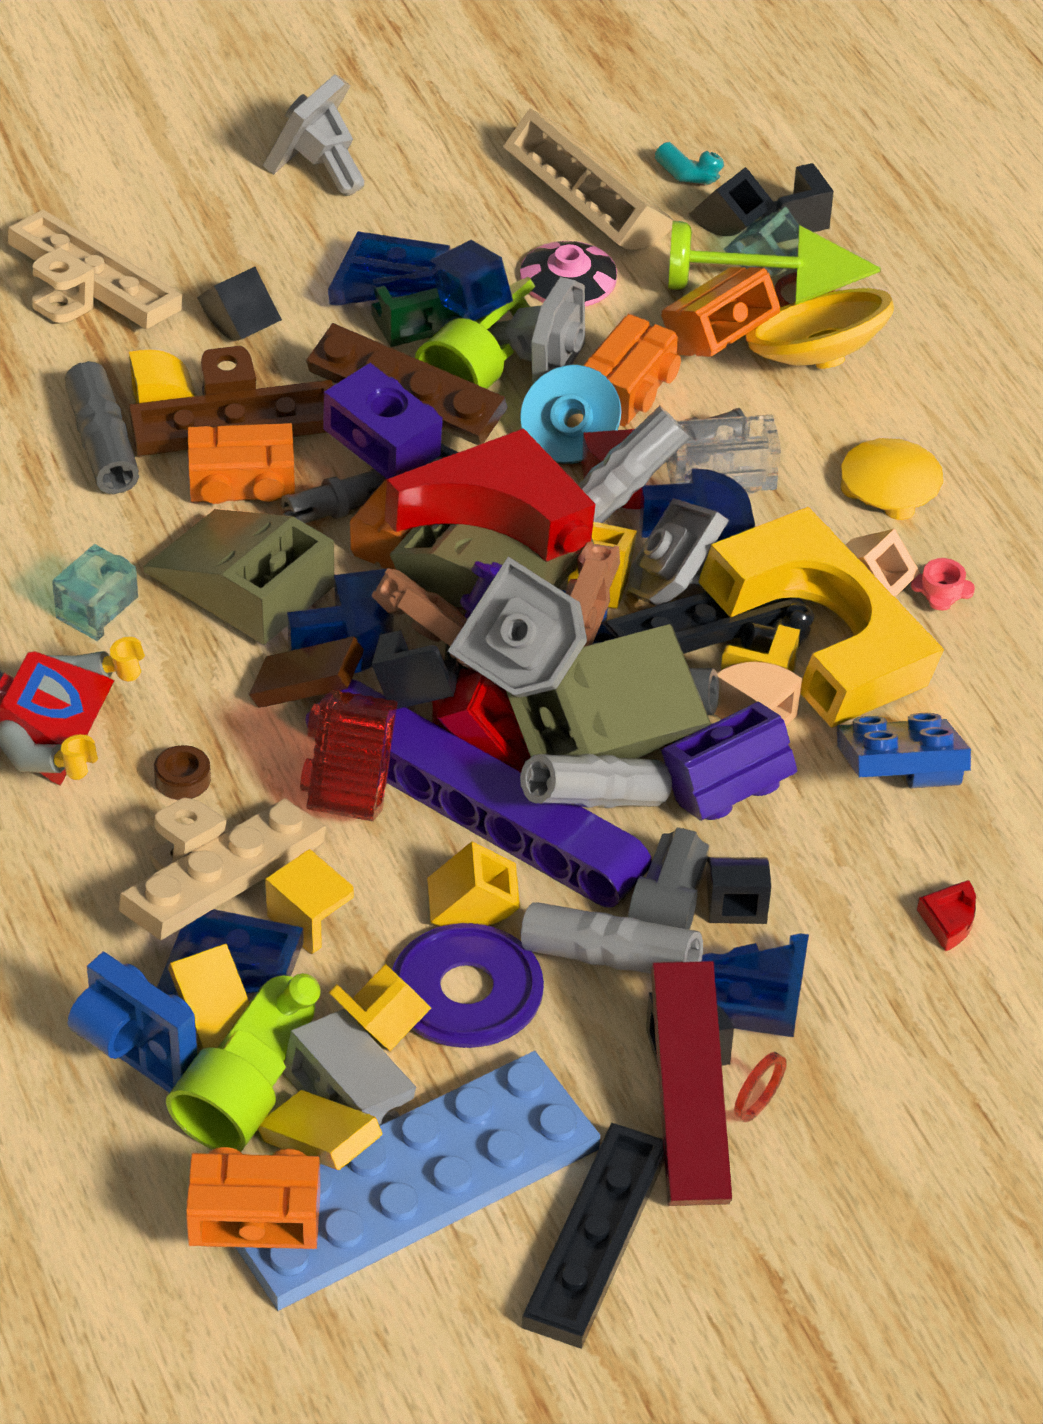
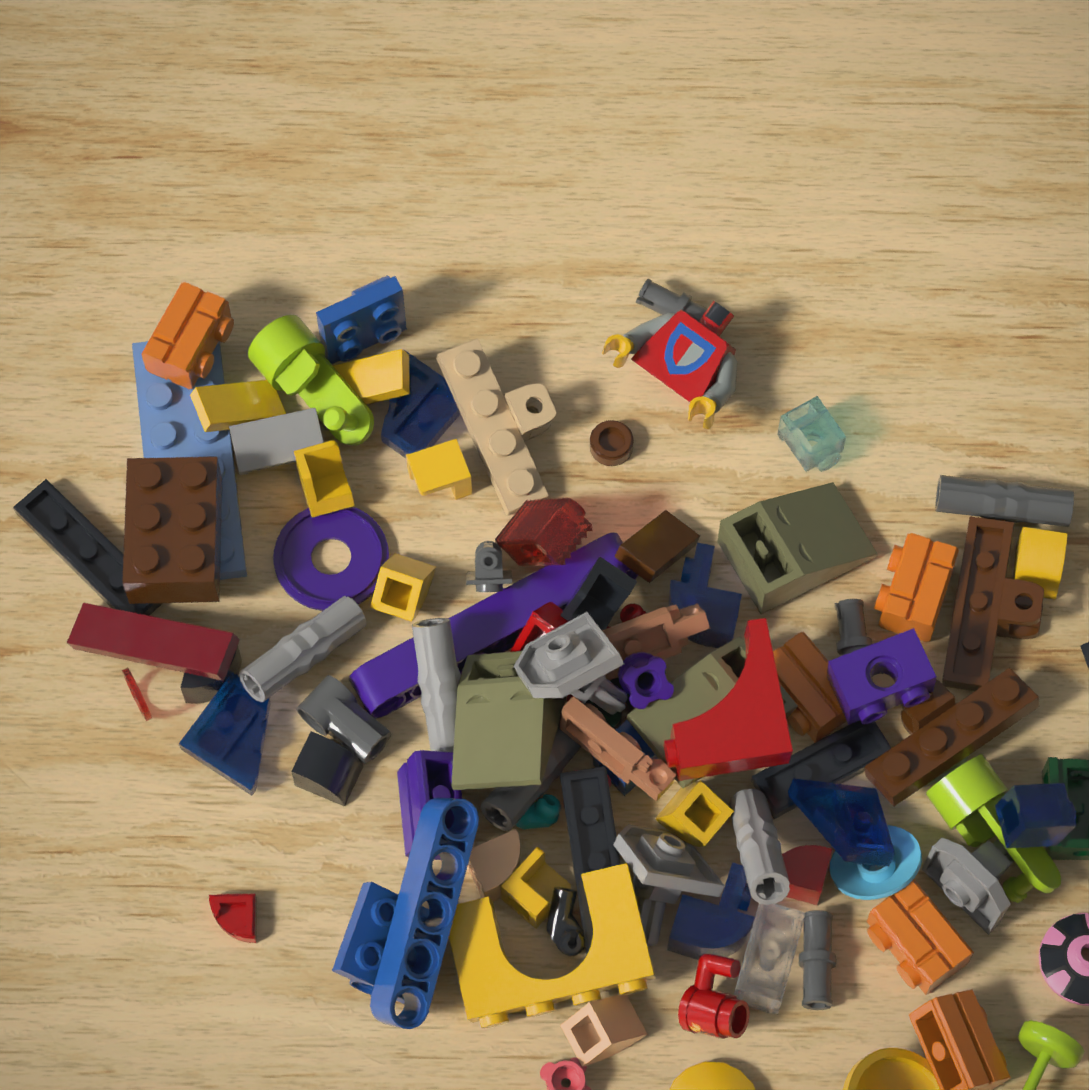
camera: 115 degrees right, 20 degrees up
(429, 788) = (488, 569): none -> dark grey hinge
(540, 1103) = (172, 530): none -> reddish brown brick
(554, 420) = (847, 819): none -> clear blue wing
(802, 481) = (712, 1010): none -> red piece
(865, 689) = (406, 927): none -> blue beam

